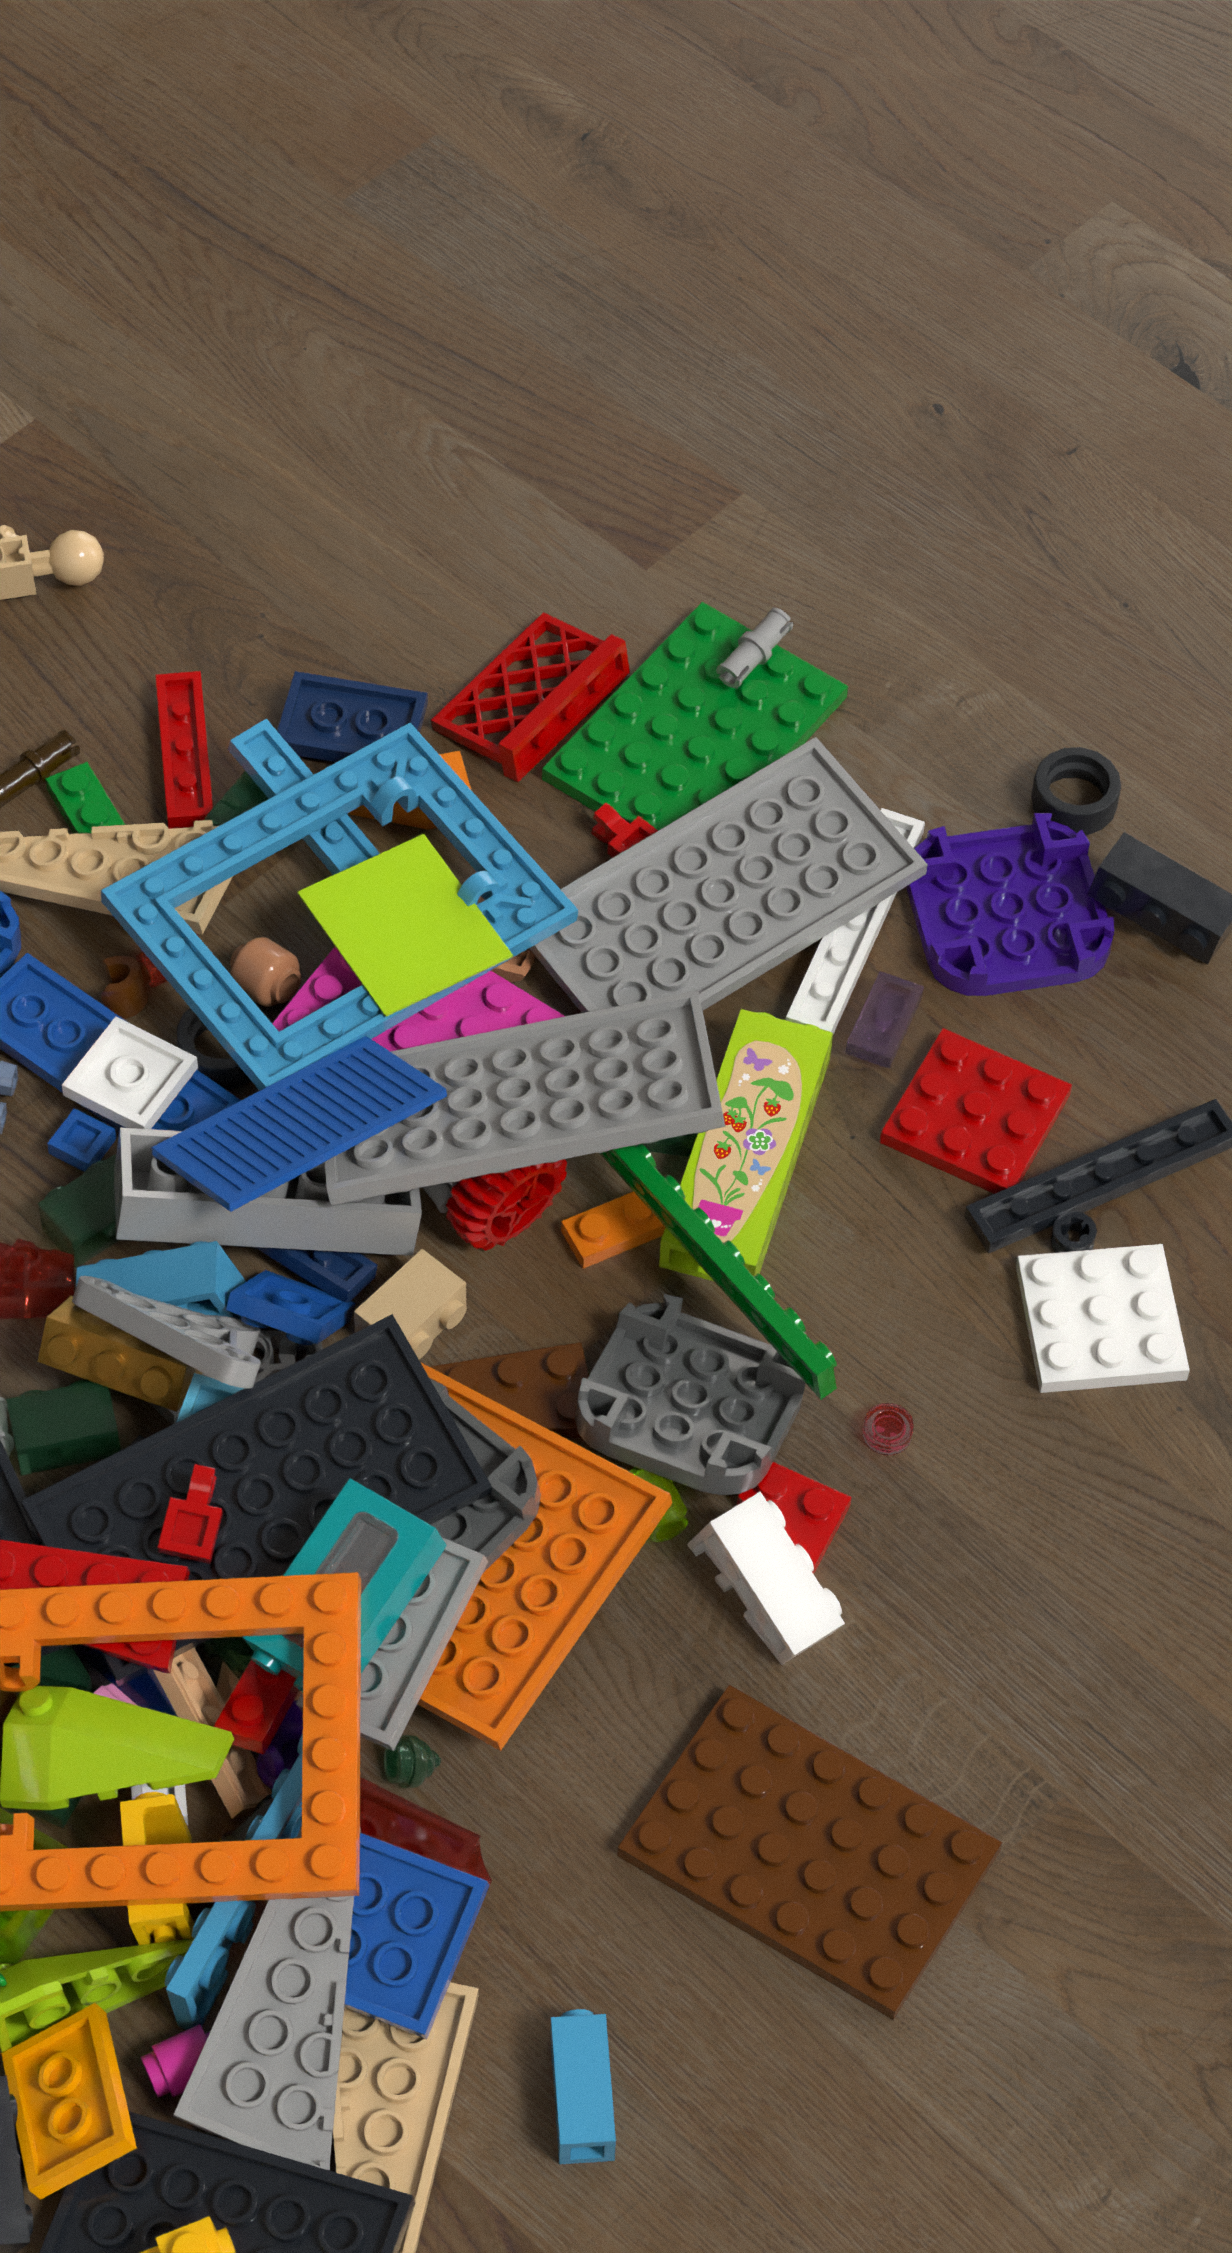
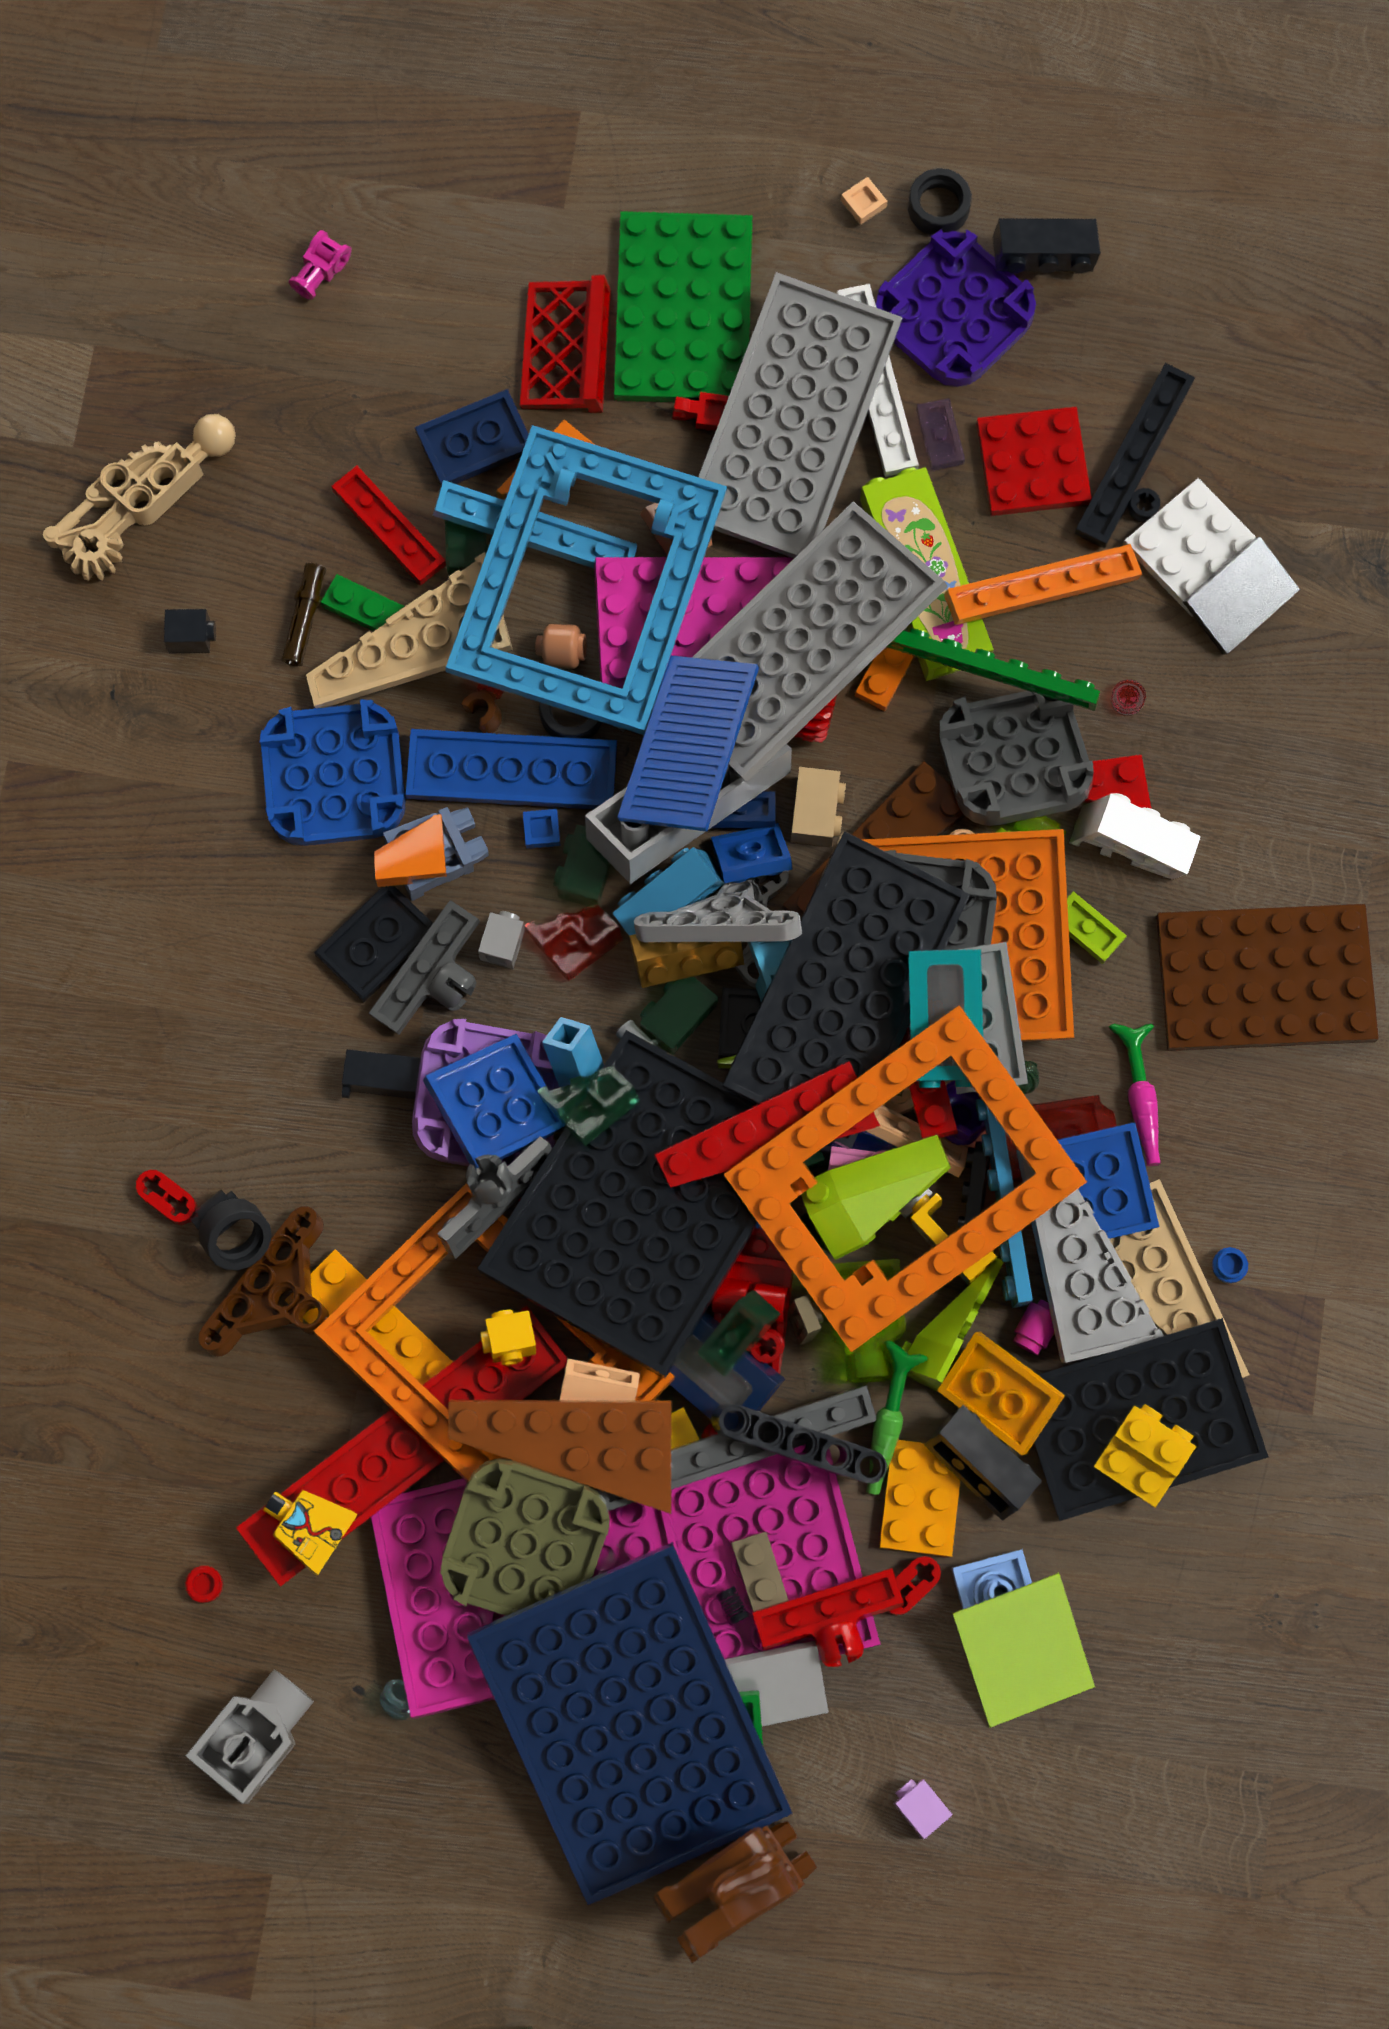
camera: 35 degrees left, 20 degrees up
(130, 1075) = (544, 771): white plate -> none
(191, 1523) = (831, 1034): red plate -> none
(333, 470) = (321, 262): none -> dark pink connector
(404, 925) = (638, 567): lime piece -> none
(488, 2157) = (1230, 1265): none -> blue plate
(541, 1876) = (1141, 1093): none -> dark pink piece
(582, 2087) = (1251, 1193): dark azure brick -> none
(629, 1647) = (1092, 929): none -> lime plate
(754, 648) = (685, 228): light grey pin -> none
(873, 1234) = (1042, 584): none -> orange plate
(988, 742) = (864, 200): none -> light nougat plate
(1114, 1398) = (1241, 595): none -> tile

